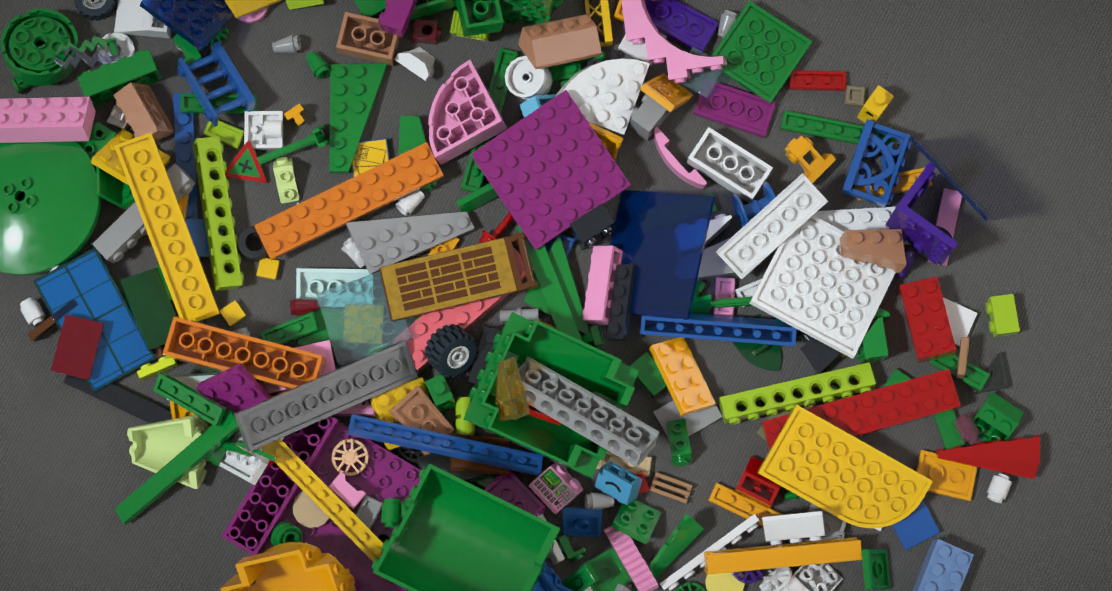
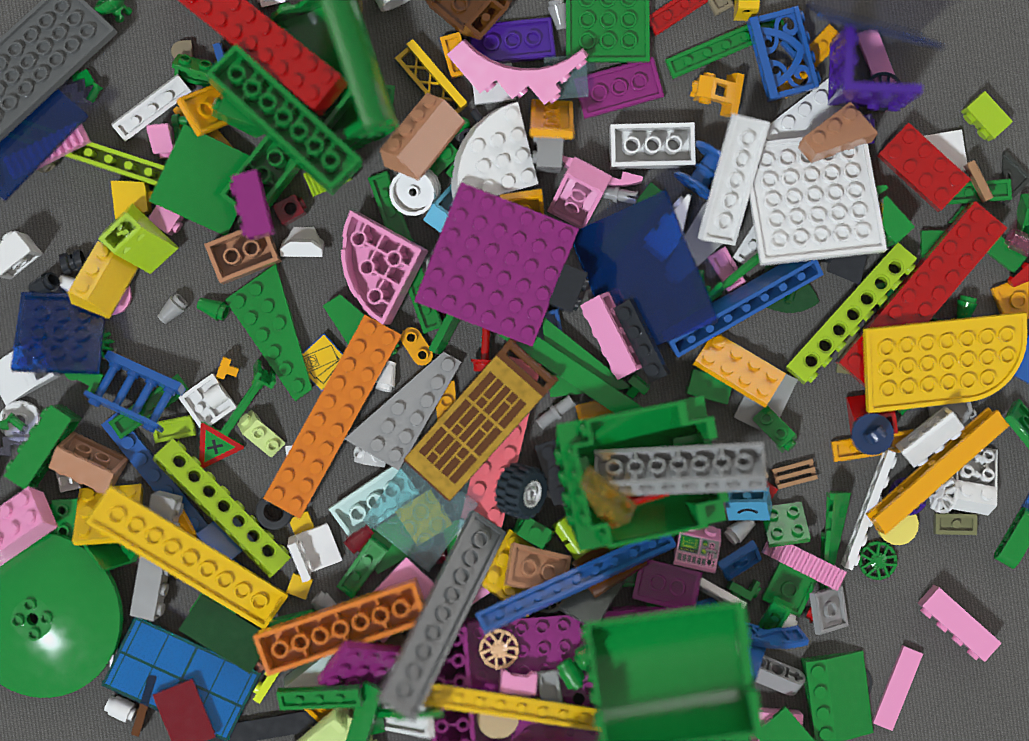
camera: 35 degrees left, 10 degrees up
(263, 292) = (313, 550): none -> white bracket
(449, 194) = (416, 346): none -> light orange plate
(650, 162) = (579, 193): none -> bright pink slope
(678, 183) = (618, 194): none -> light grey pin
(750, 491) = (872, 434): none -> dark blue tile
(892, 448) = (966, 306): none -> green cone

